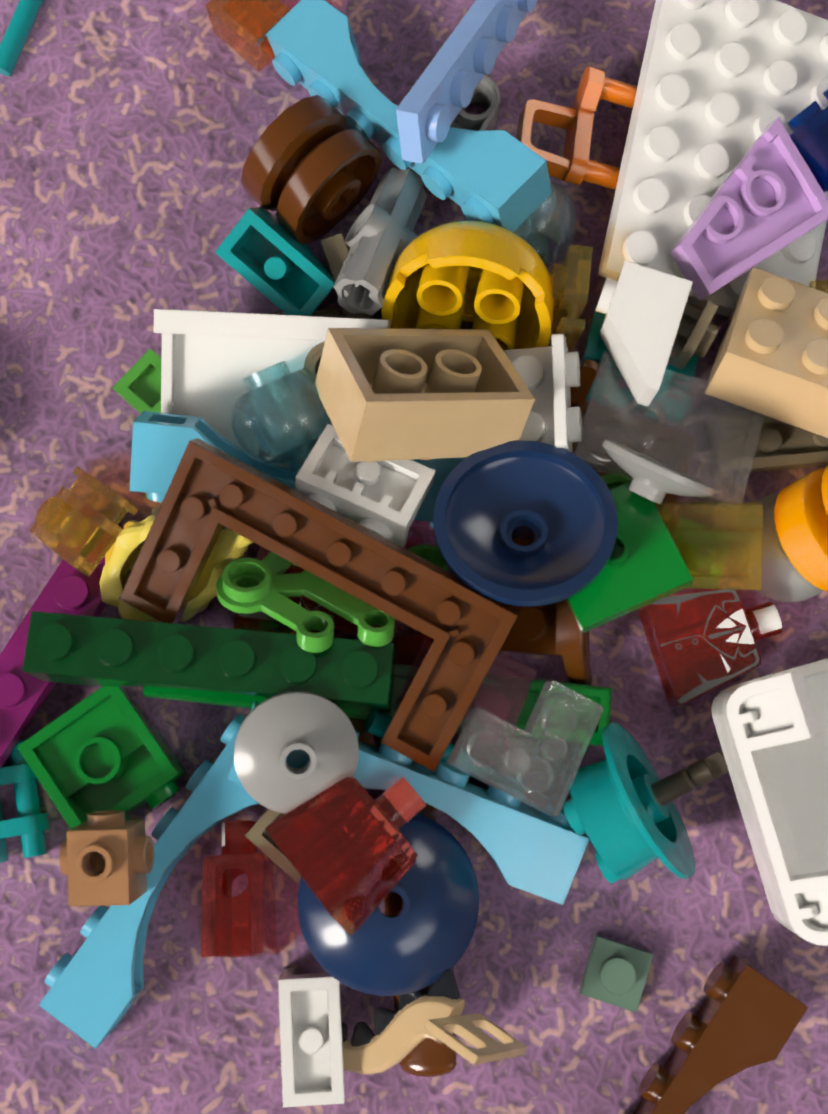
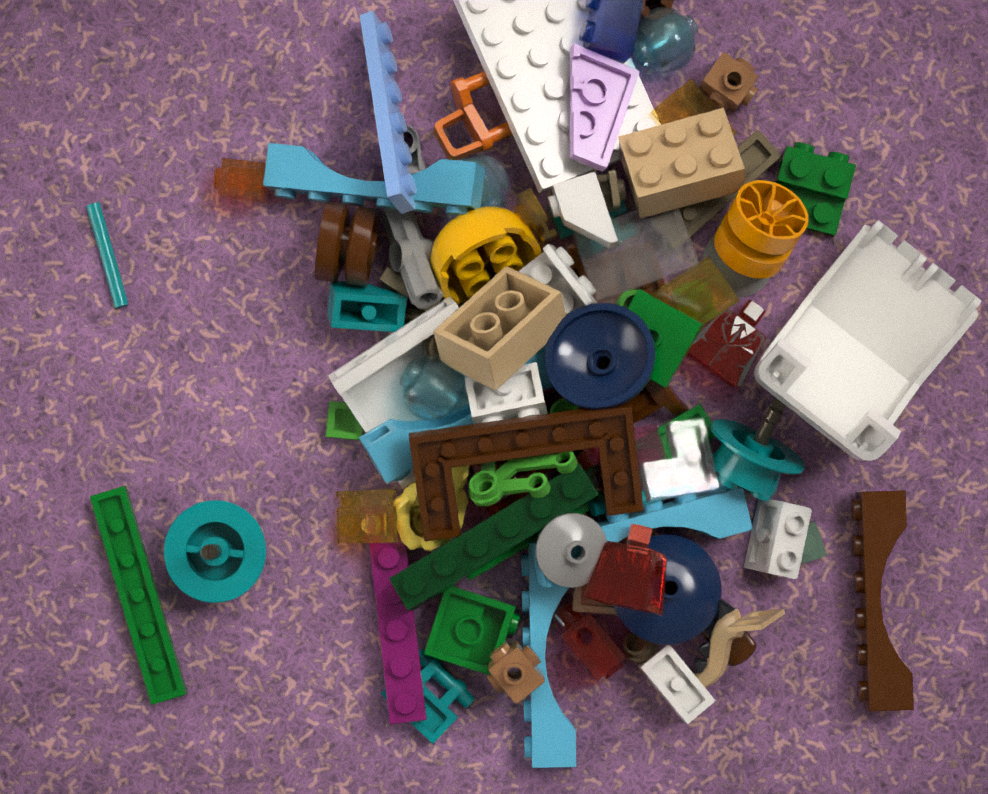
camera: 40 degrees left, 5 degrees up
(294, 952) = (637, 649): none -> dark tan plate
(587, 941) = (777, 538): none -> white bracket
(654, 478) = (646, 283): light grey dish -> none

